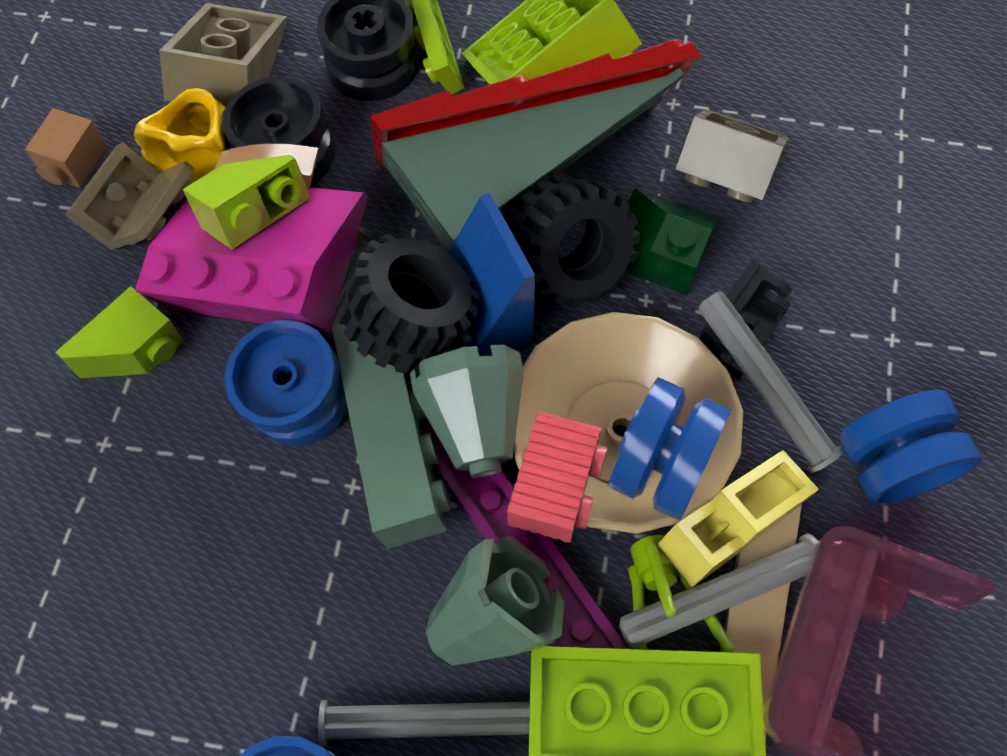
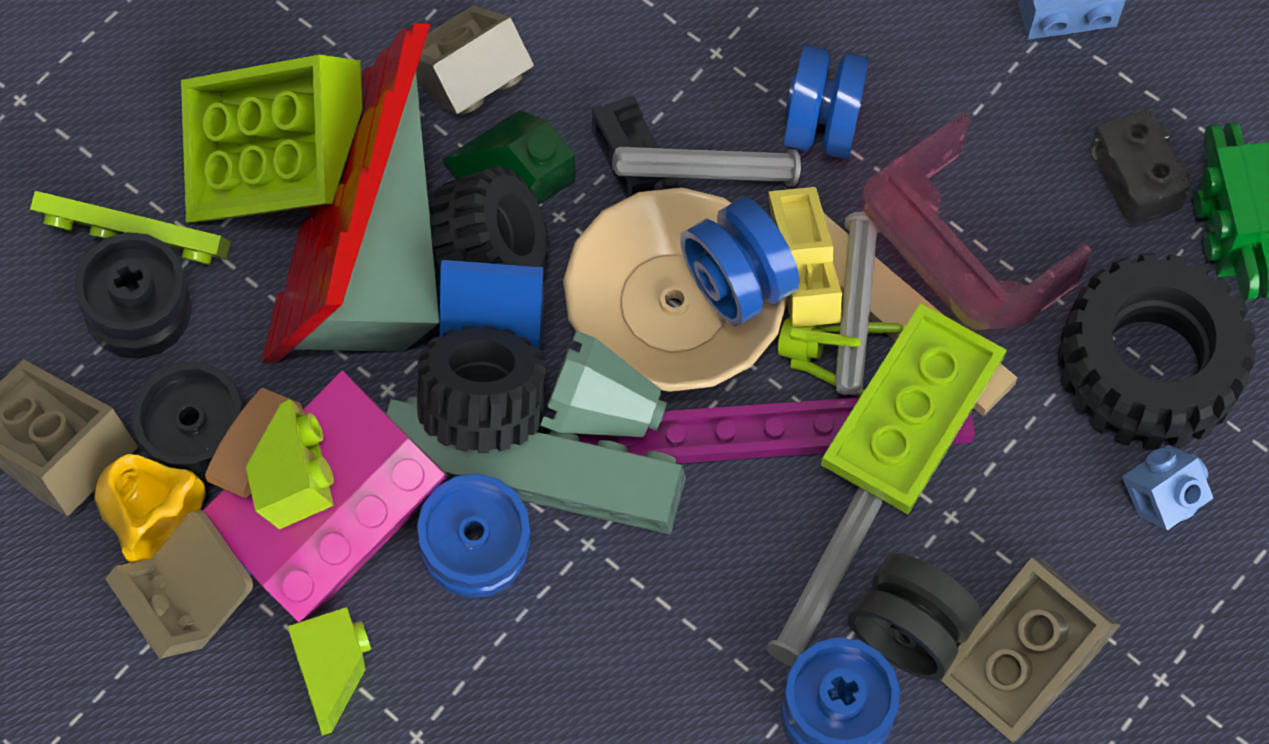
camera: 65 degrees left, 0 degrees up
(66, 148) = (64, 634): medium nougat brick -> none
(495, 606) = (776, 473): sand green cone -> none
(555, 476) = (704, 360): coral brick -> none

